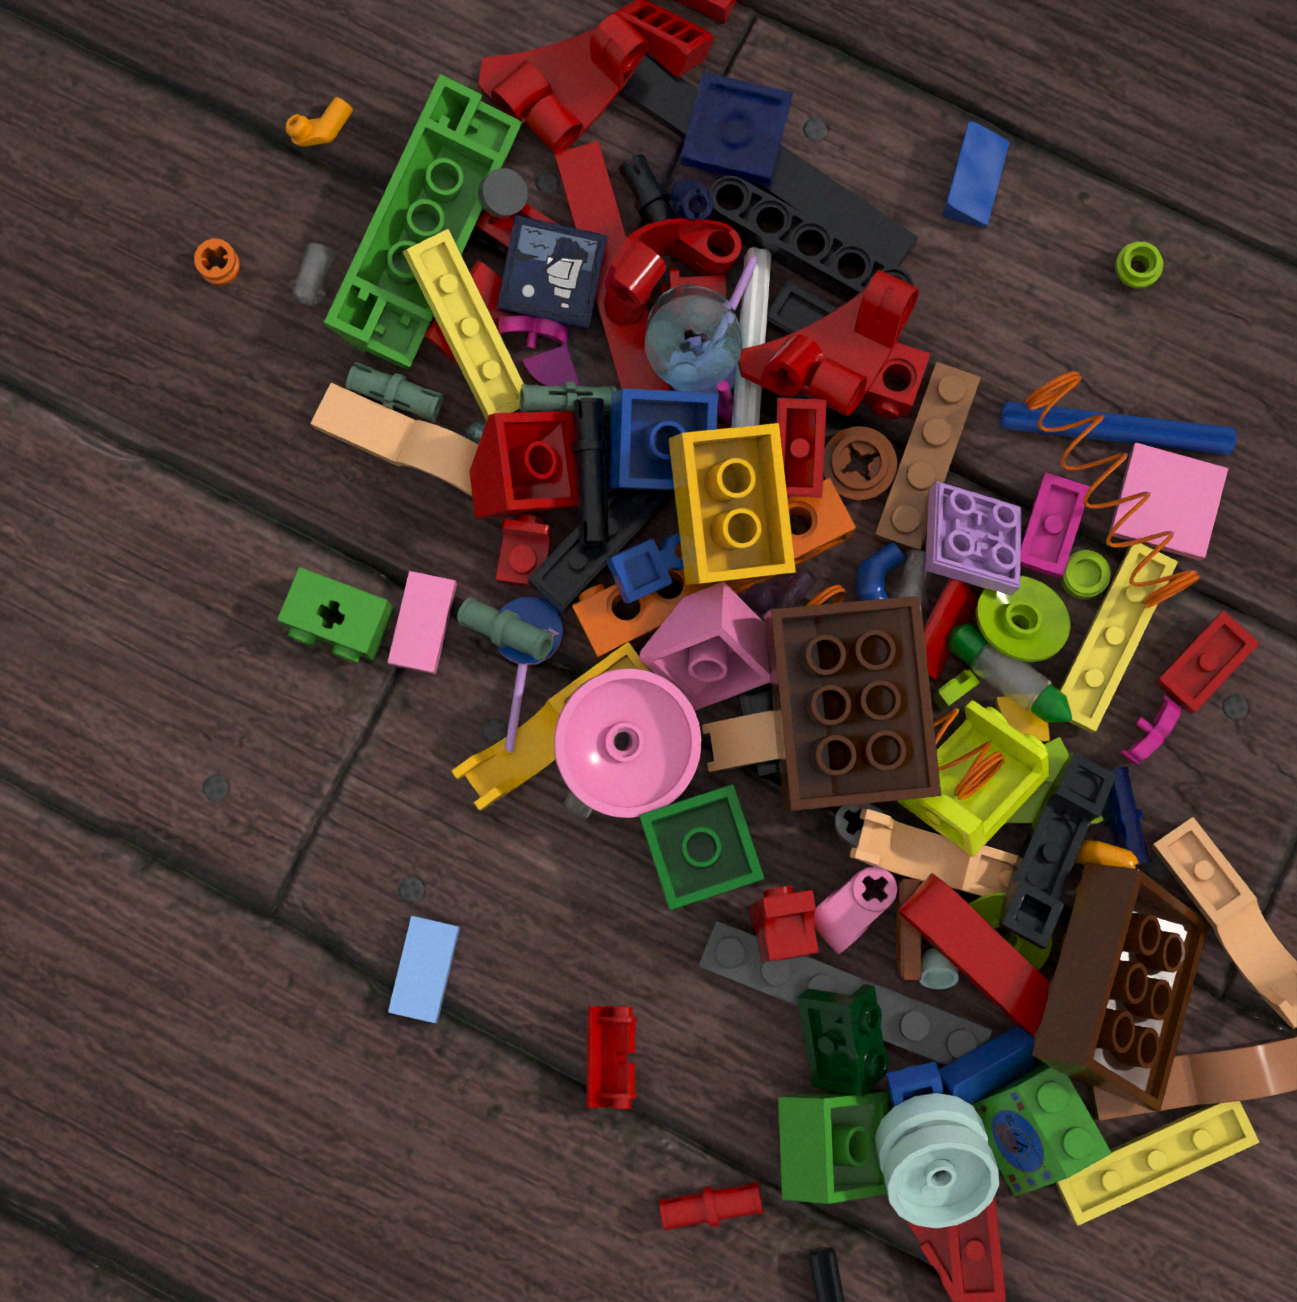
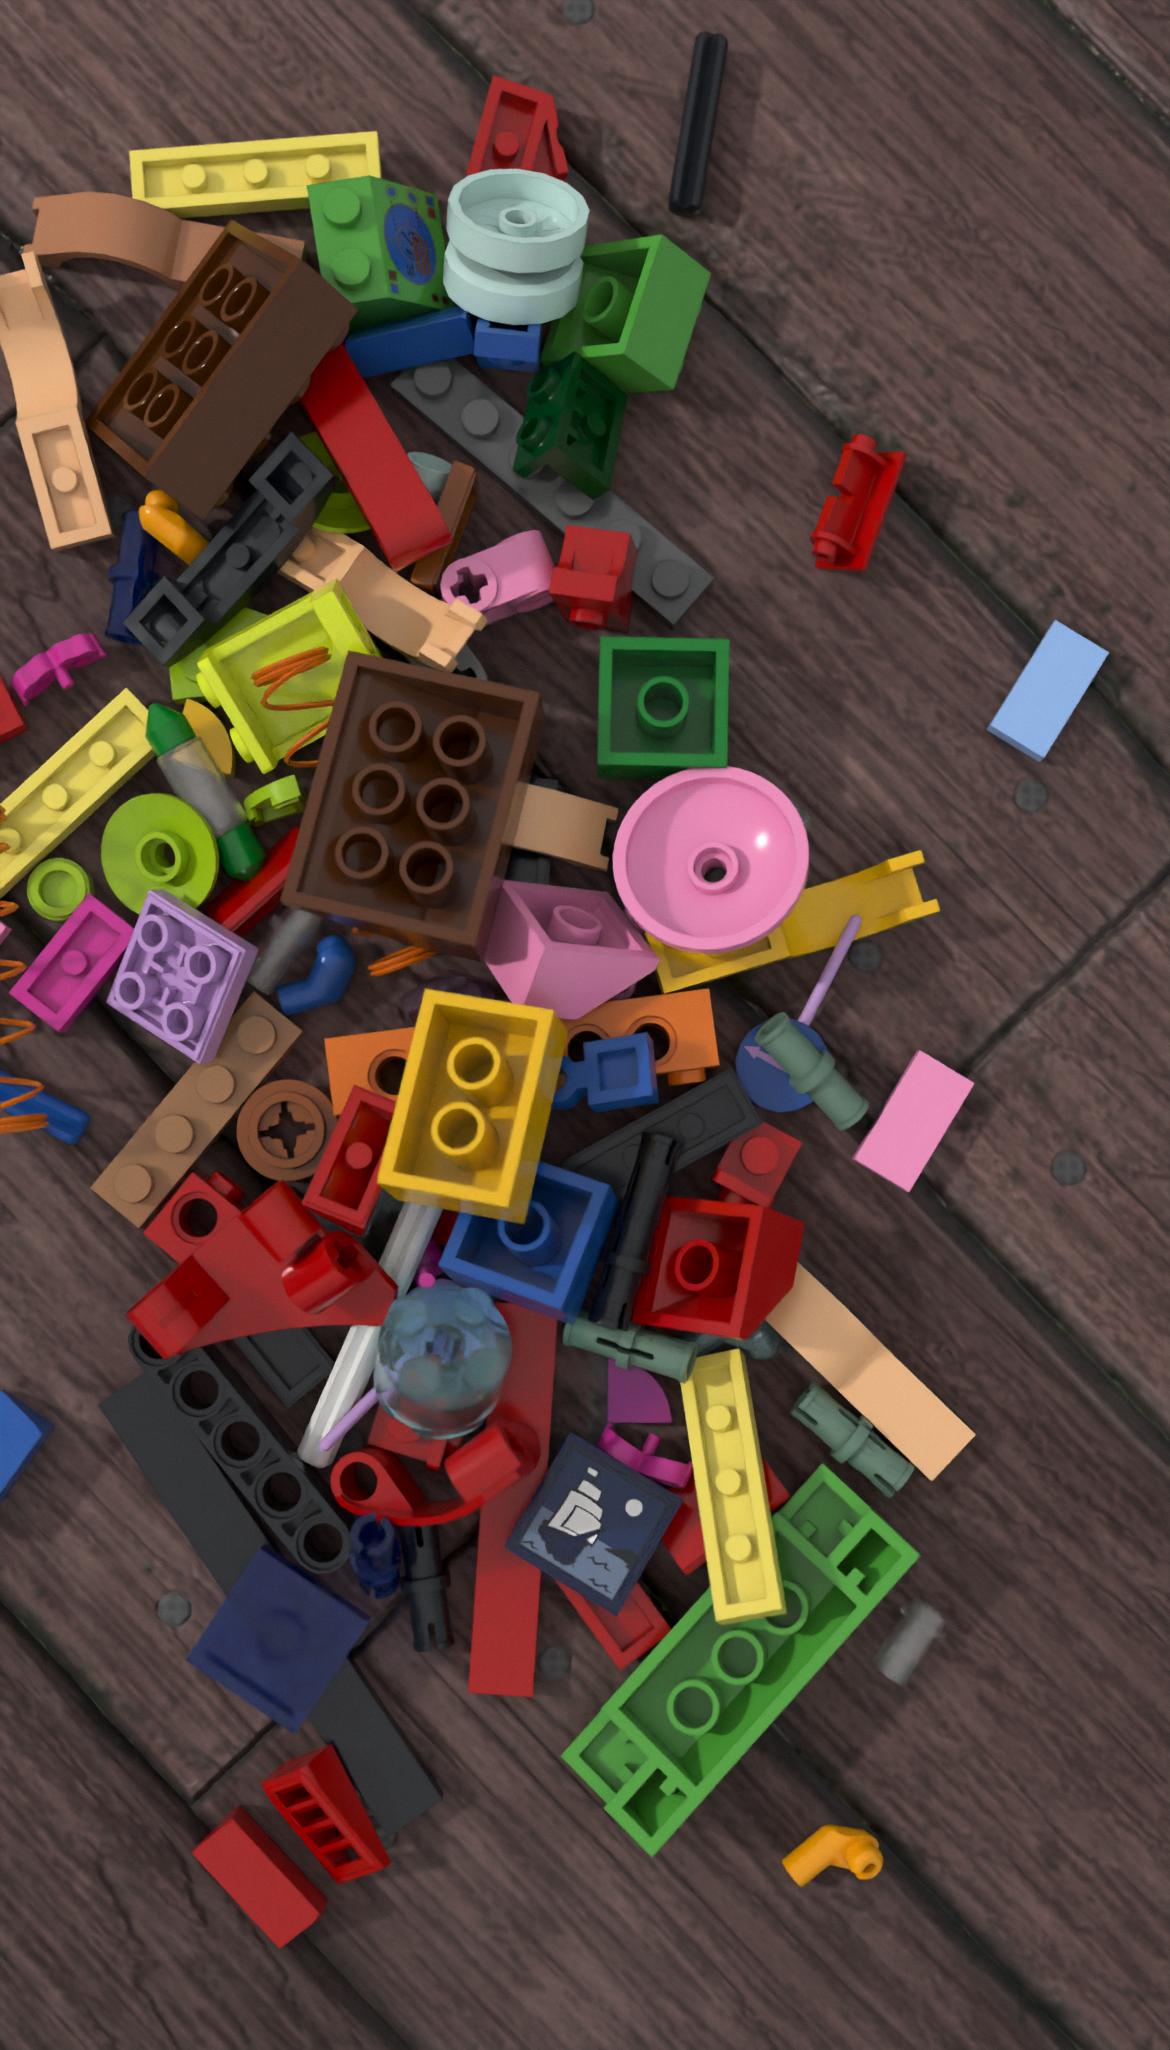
camera: 165 degrees left, 5 degrees up
(217, 248) = (1023, 1725): orange bush -> none
(316, 596) = (986, 1157): bright green brick -> none
(503, 193) = (622, 1656): dark grey tile -> none
(567, 83) = (485, 1793): red panel -> none
(711, 1206) = (796, 299): red pin -> none

